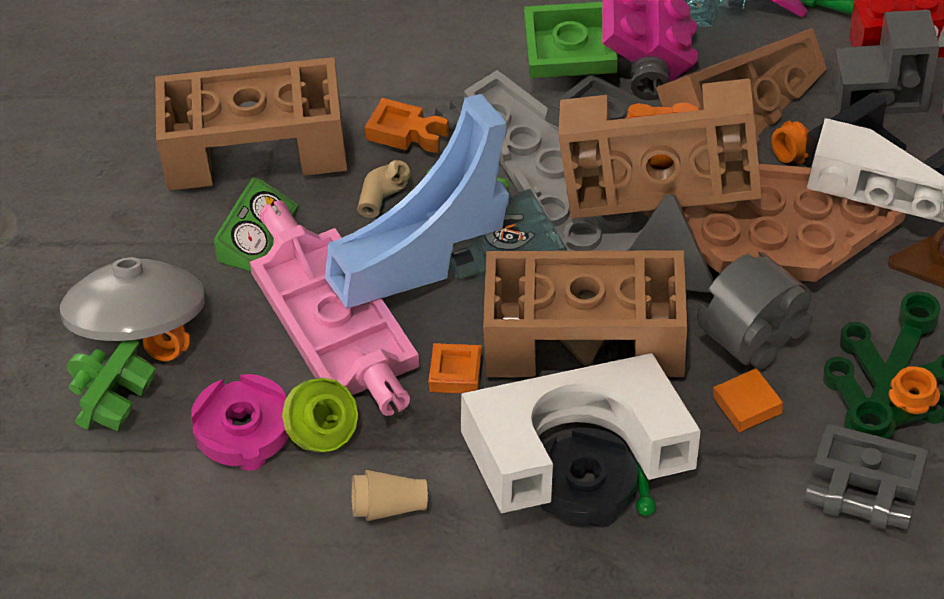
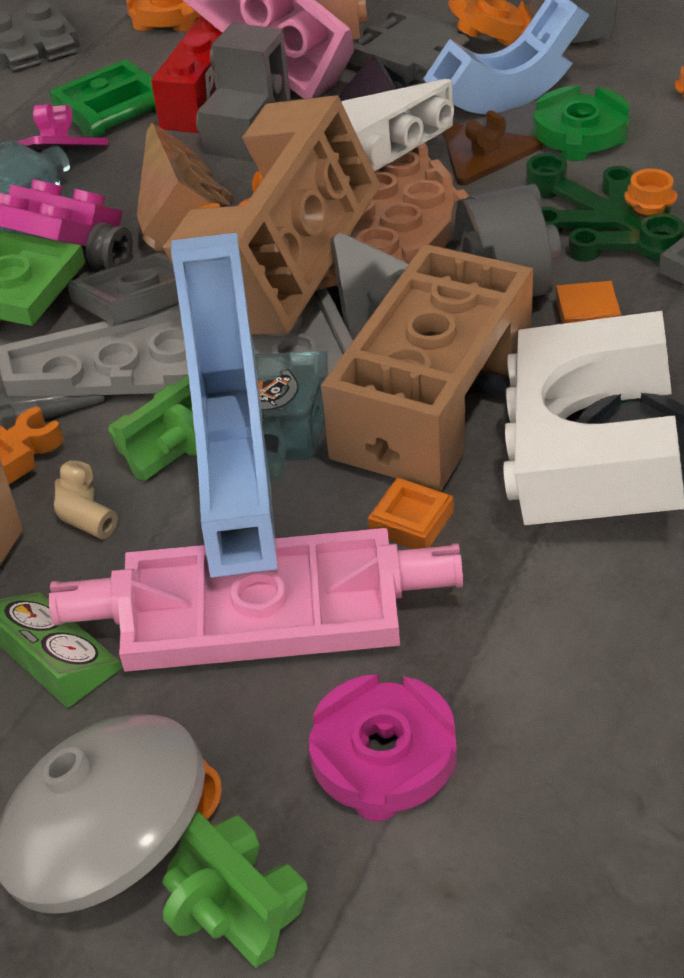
camera: 65 degrees left, 5 degrees down
(320, 415) = (432, 646): lime plate -> none
(386, 495) = (586, 626): tan cone -> none

